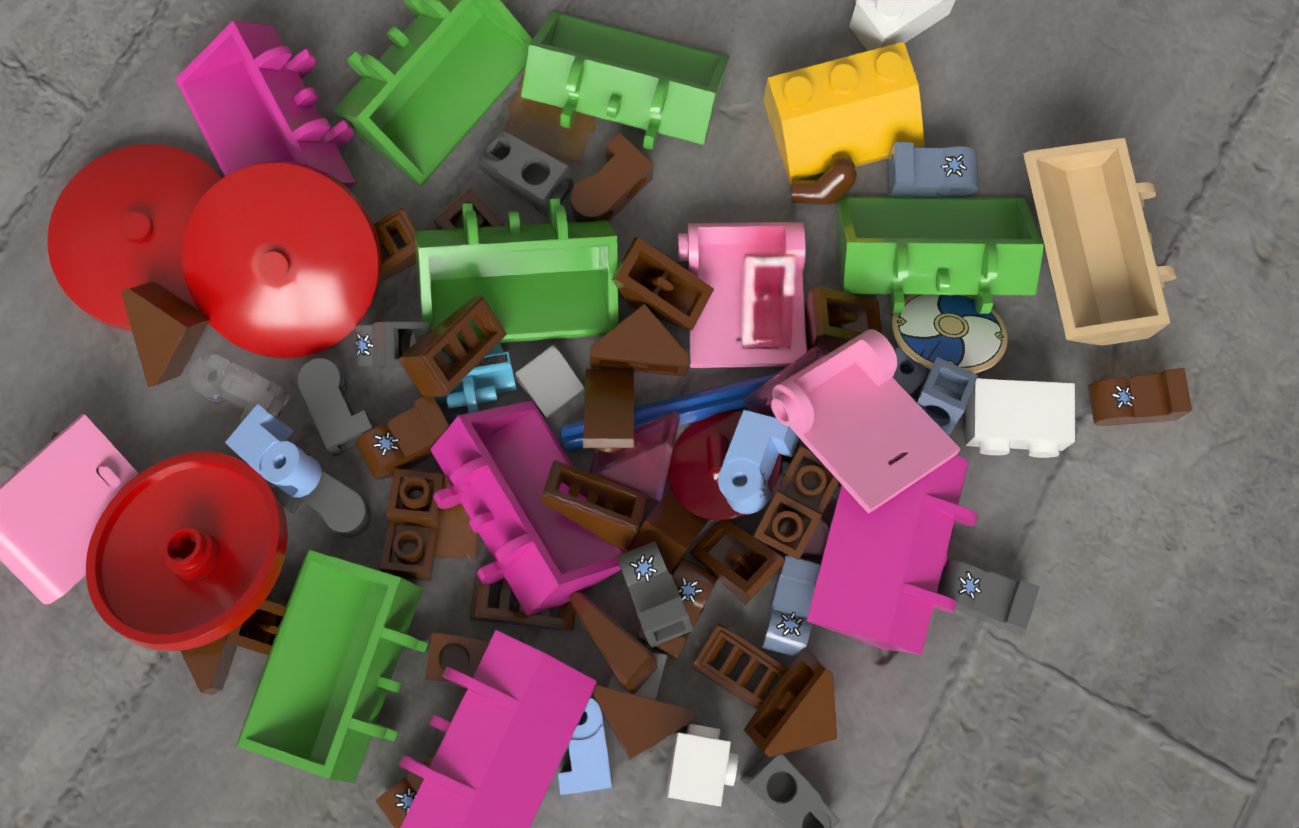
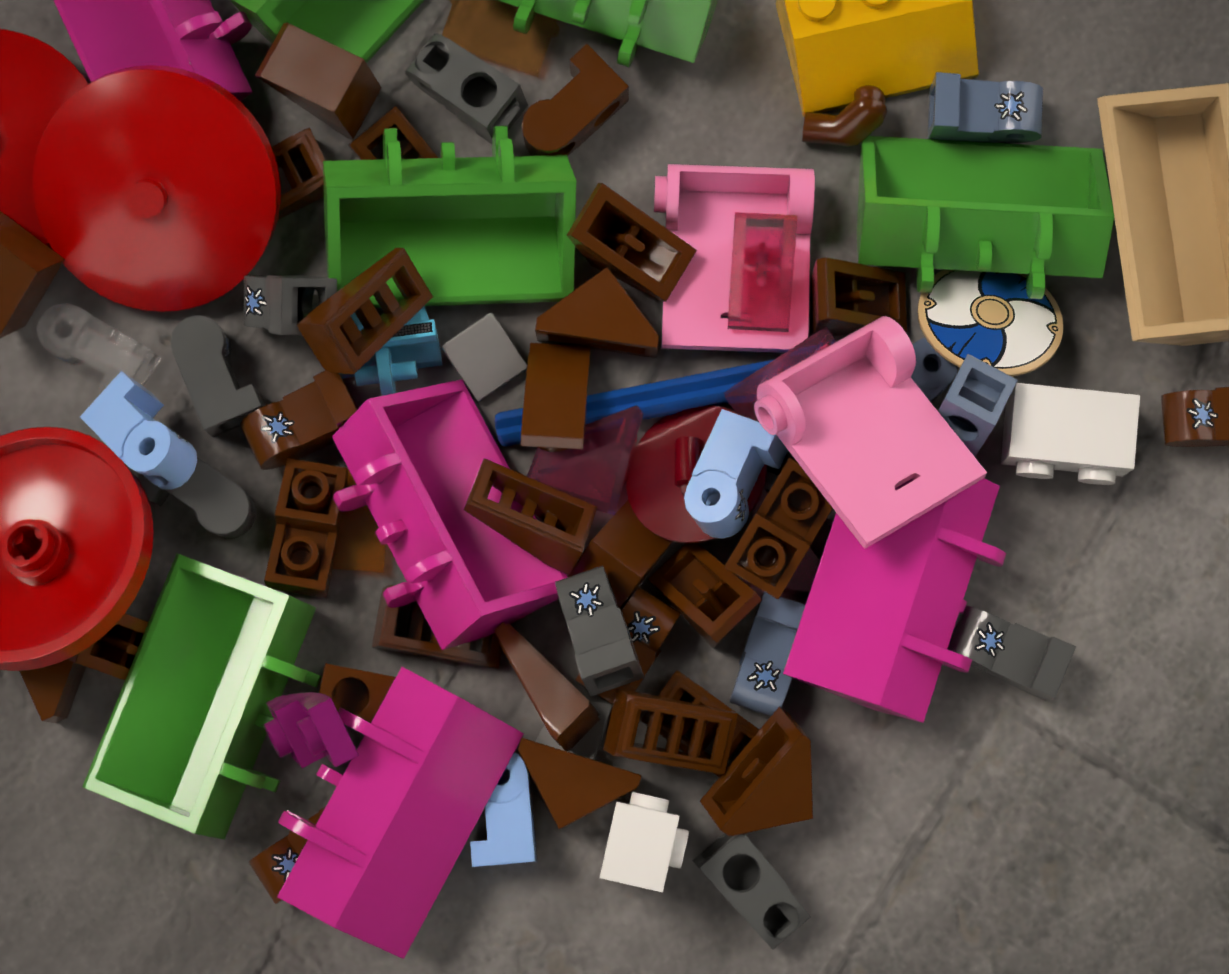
camera: 10 degrees right, 5 degrees up
(410, 169) = (320, 78): none -> reddish brown slope
(421, 686) = (308, 729): none -> magenta slope
(680, 667) = (625, 721): none -> reddish brown slope

